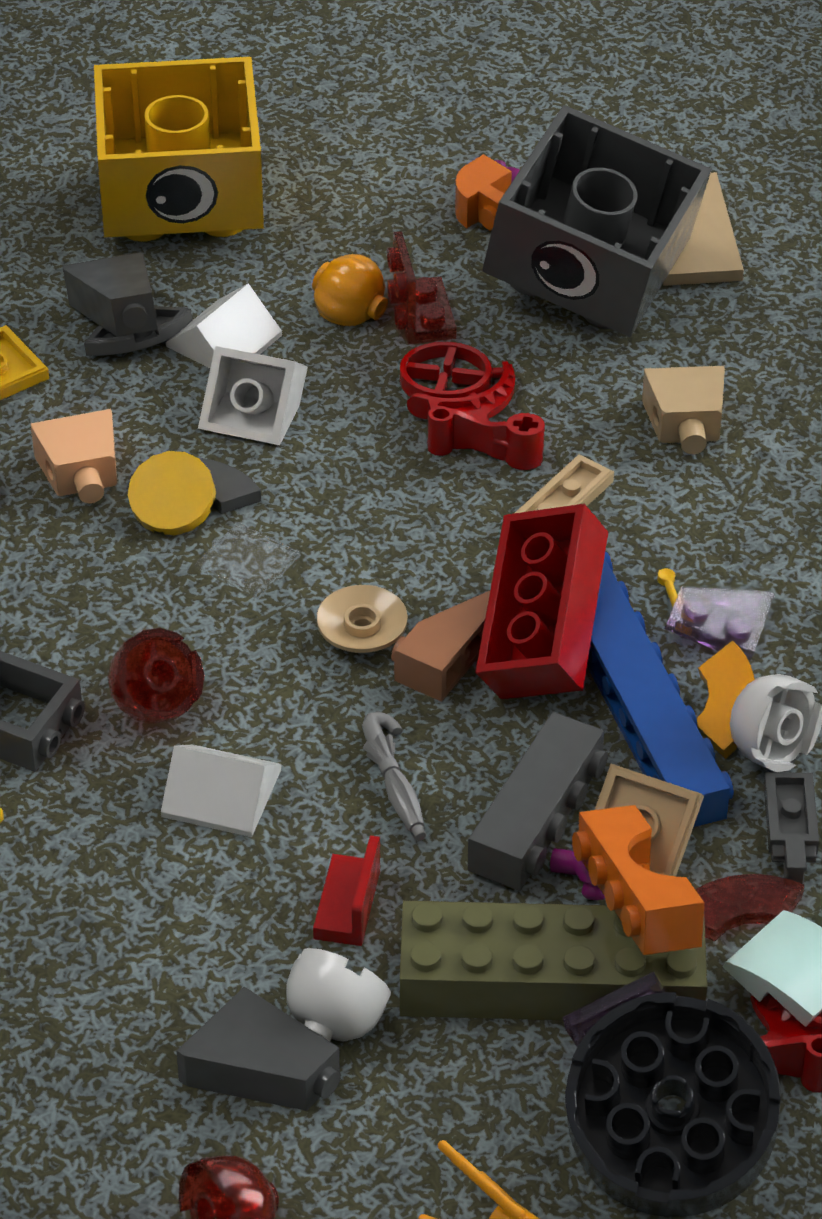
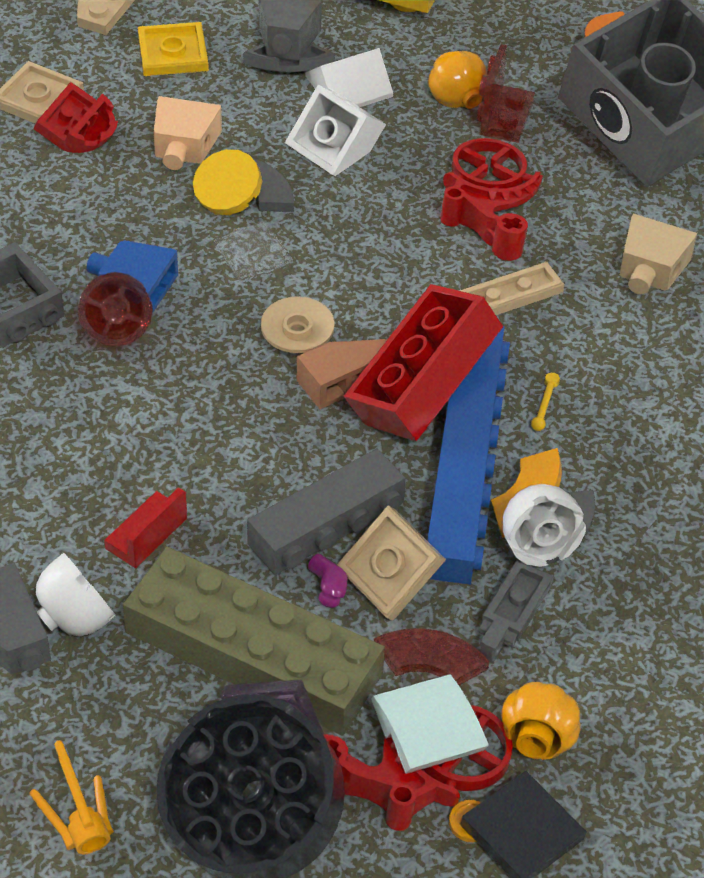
camera: 25 degrees right, 5 degrees up
(130, 615) = (150, 264): none -> blue torso
(218, 789) = (113, 408): white slope -> none
(399, 790) = (238, 463): light grey piece -> none
(654, 908) = (331, 628): orange arch -> none
(720, 616) = (568, 427): clear purple wing -> none

